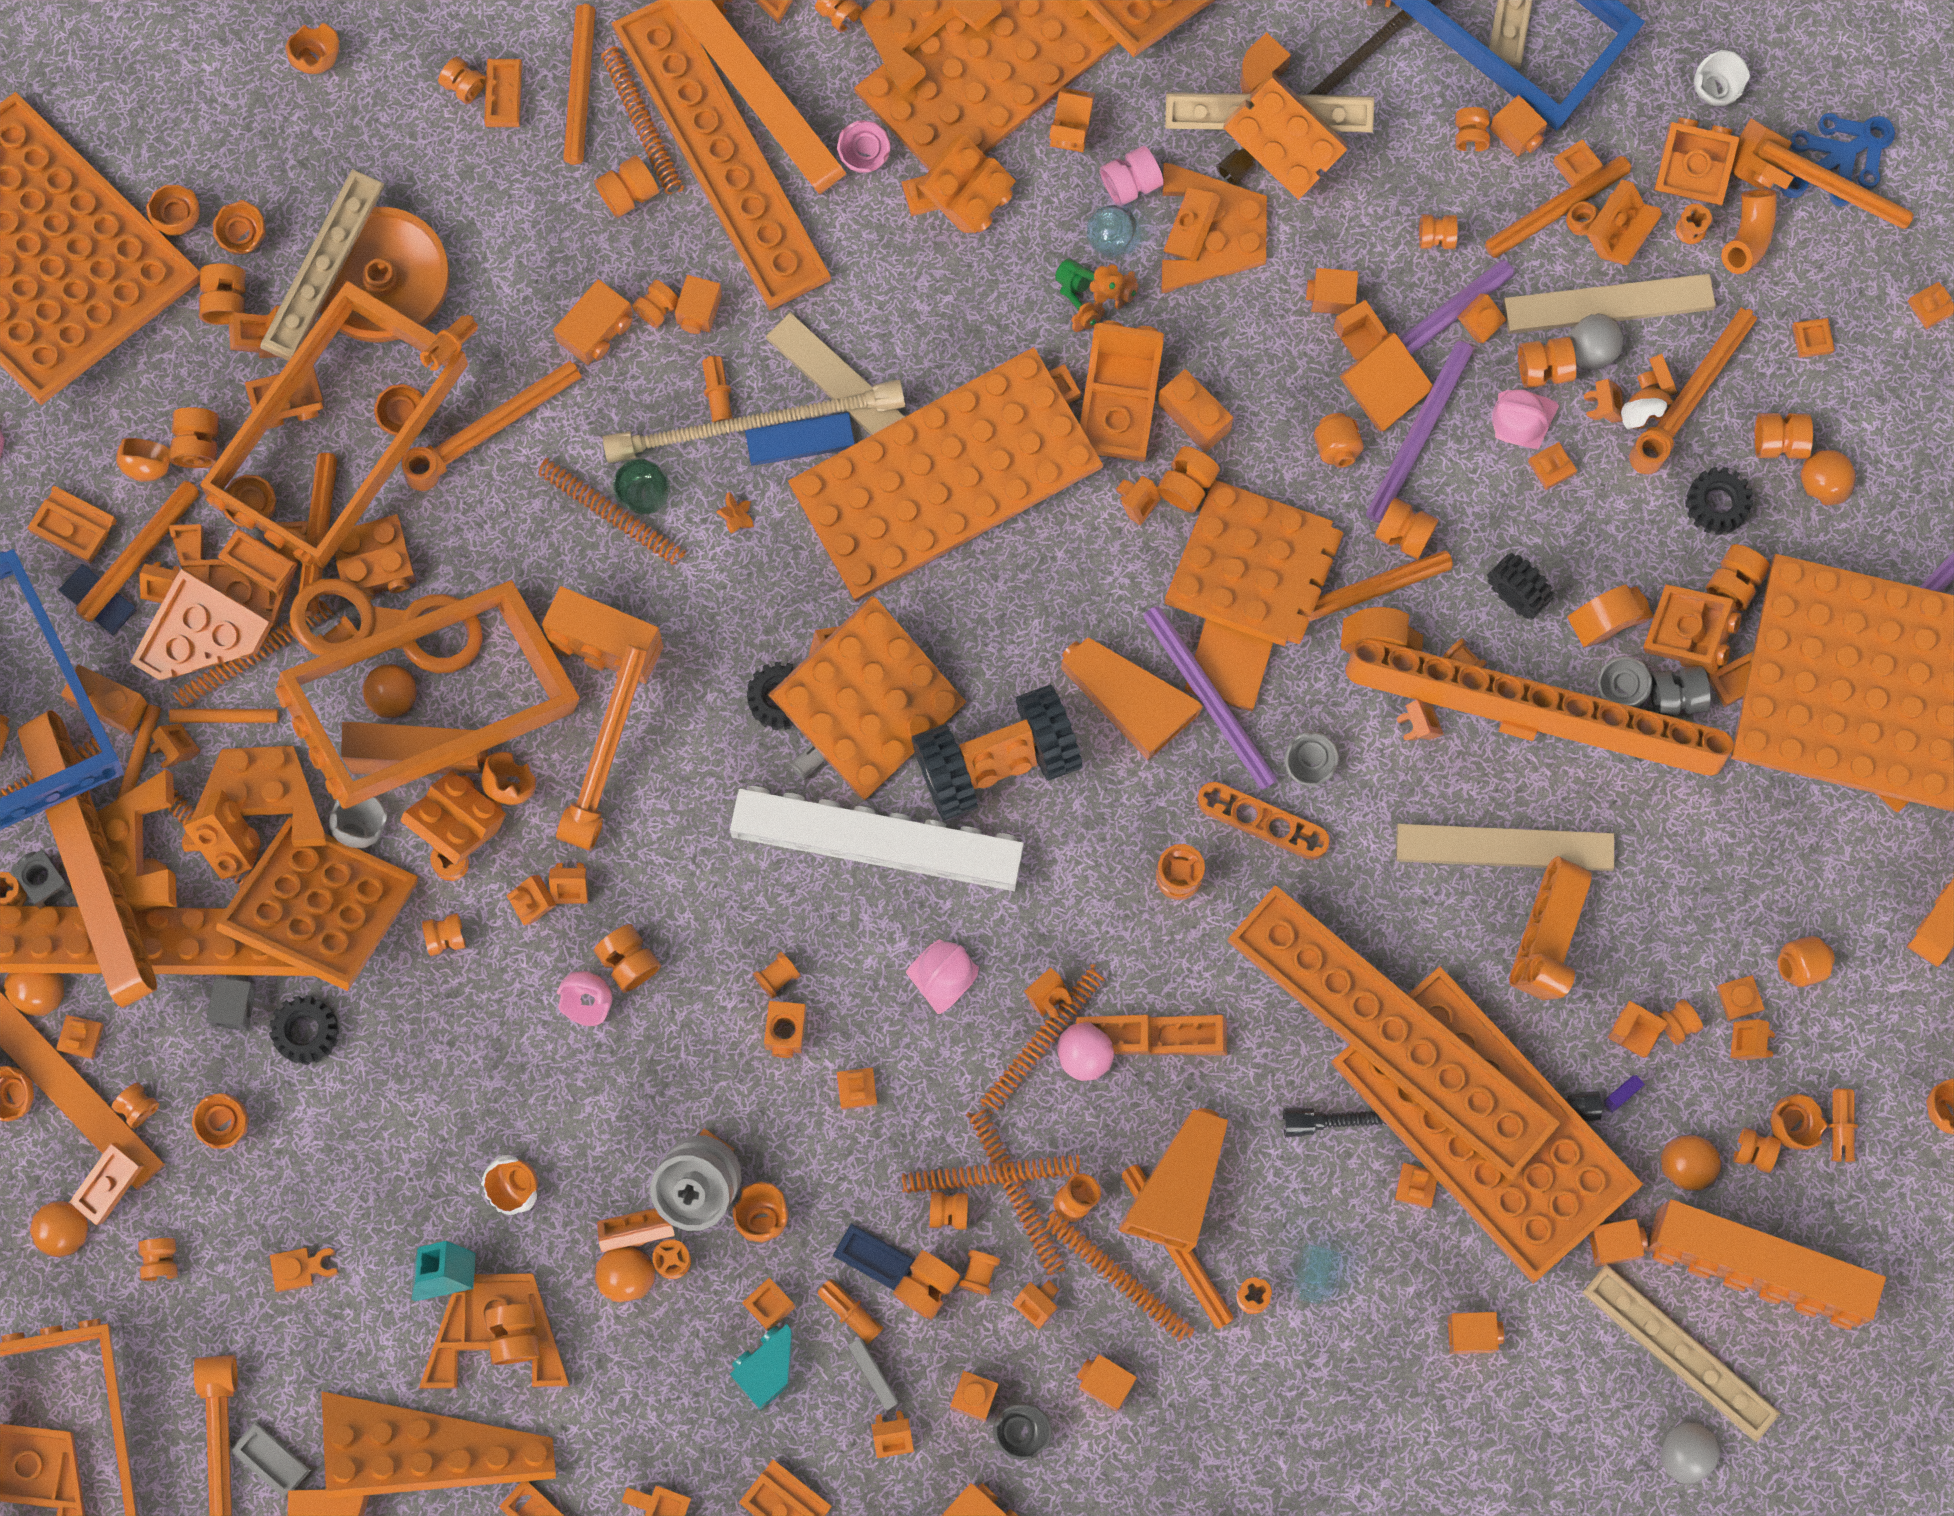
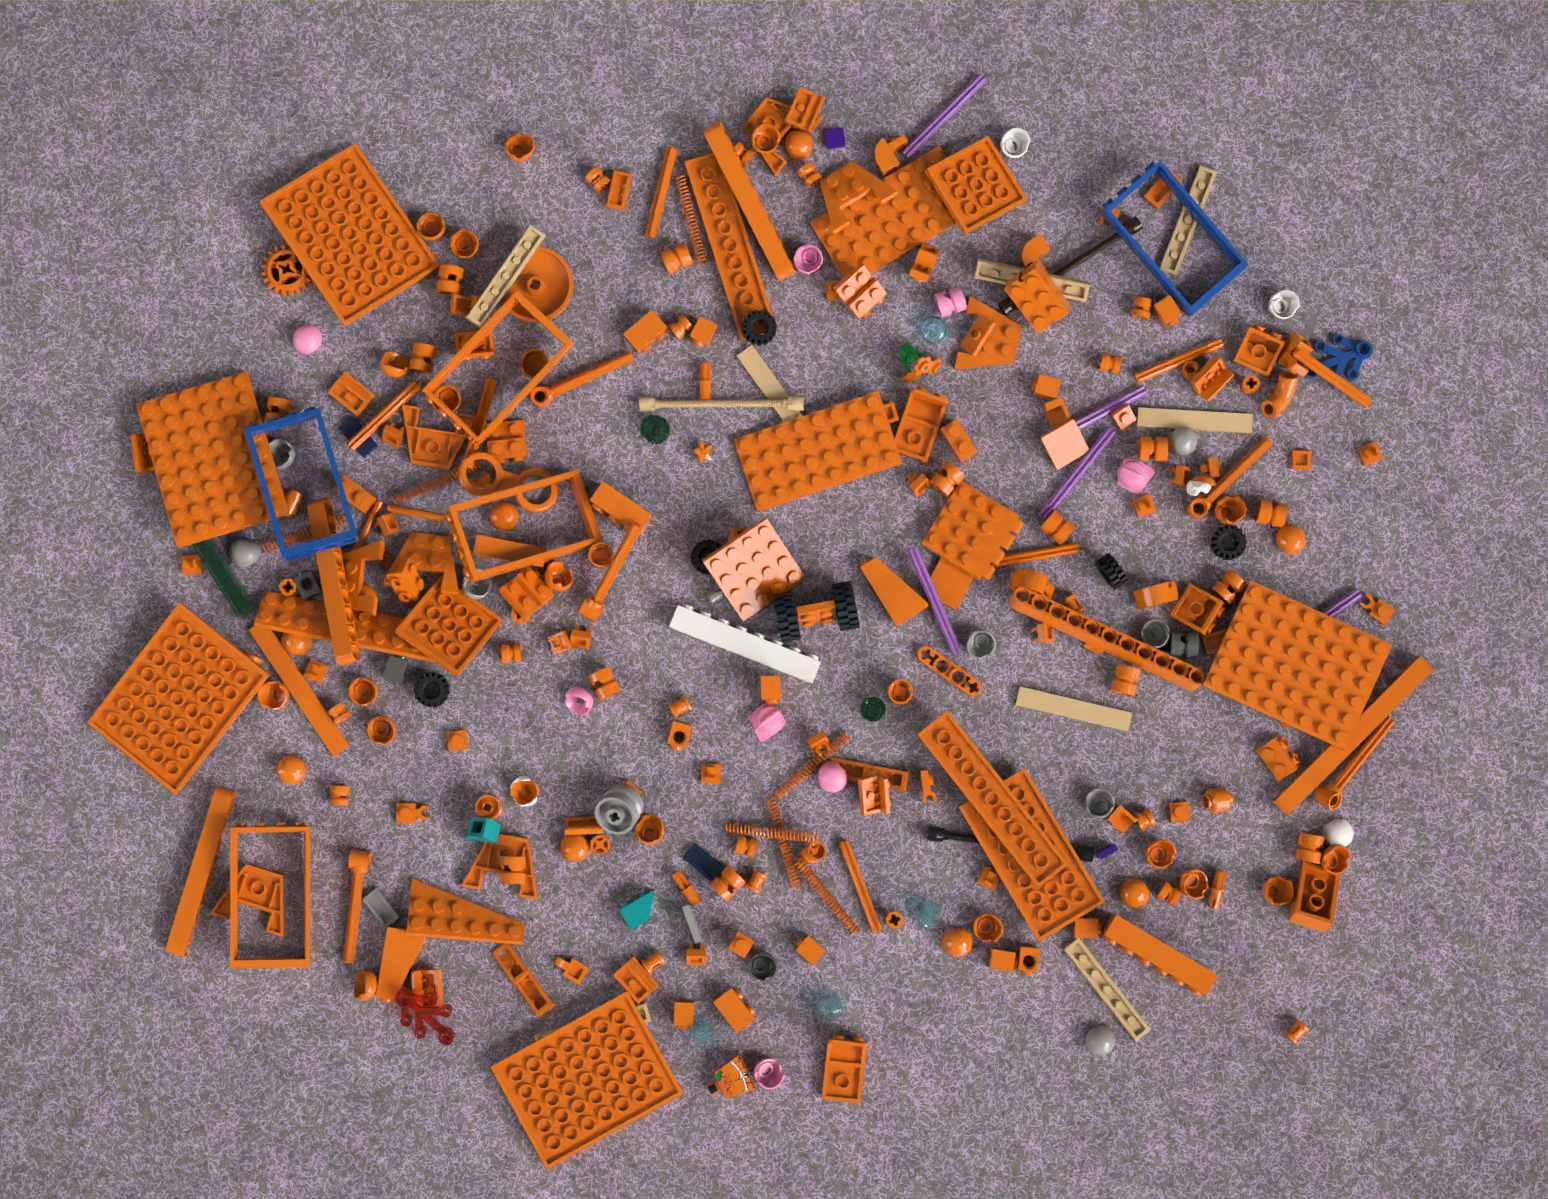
camera: 15 degrees right, 10 degrees up
(106, 1183) = (319, 752): plate -> none
(166, 1048) = (359, 686): none -> orange hair
(198, 630) = (409, 466): plate -> none
(258, 561) = (446, 434): orange tile -> none
(367, 1116) = (457, 740): none -> orange plate
(448, 342) = (566, 336): orange axle -> none
(448, 1222) = (488, 807): none -> orange wheel
(579, 725) = (600, 555): none -> orange wheel
(613, 508) = (635, 441): orange piece -> none
(768, 1304) = (645, 878): orange tile -> none
(793, 257) = (759, 316): none -> black tyre
(799, 439) = (744, 416): blue tile -> none
(812, 1463) = (653, 962): none -> orange bush
(940, 908) = (770, 689): none -> orange brick
(1037, 1303) = (782, 902): orange tile -> none
(1136, 912) = (872, 709): none -> clear green wheel
(1166, 1483) = (830, 1006): none -> clear light blue head
(1170, 1067) = (874, 794): none -> orange bracket
(1178, 1189) = (865, 858): orange slope -> none
(1262, 1027) = (926, 781): none -> orange plate
(1338, 440) = (1032, 471): orange head -> none
(1381, 1317) = (957, 942): none -> orange hair
(1426, 1264) = (985, 920): none -> orange hair
(1530, 1309) = (1025, 951): none -> orange brick
(1549, 931) = (1087, 759): orange beam -> none
(1578, 163) = (1194, 339): orange tile -> none
(1589, 771) = (1125, 680): none -> orange wheel
(1590, 993) = (1106, 806): none -> light grey hair
(1716, 436) = (1235, 506): none -> orange hair
(1733, 1068) = (1168, 852): none -> orange hair
(1751, 1040) = (1179, 835): orange tile -> none
(1899, 865) = (1279, 757): none -> orange bracket

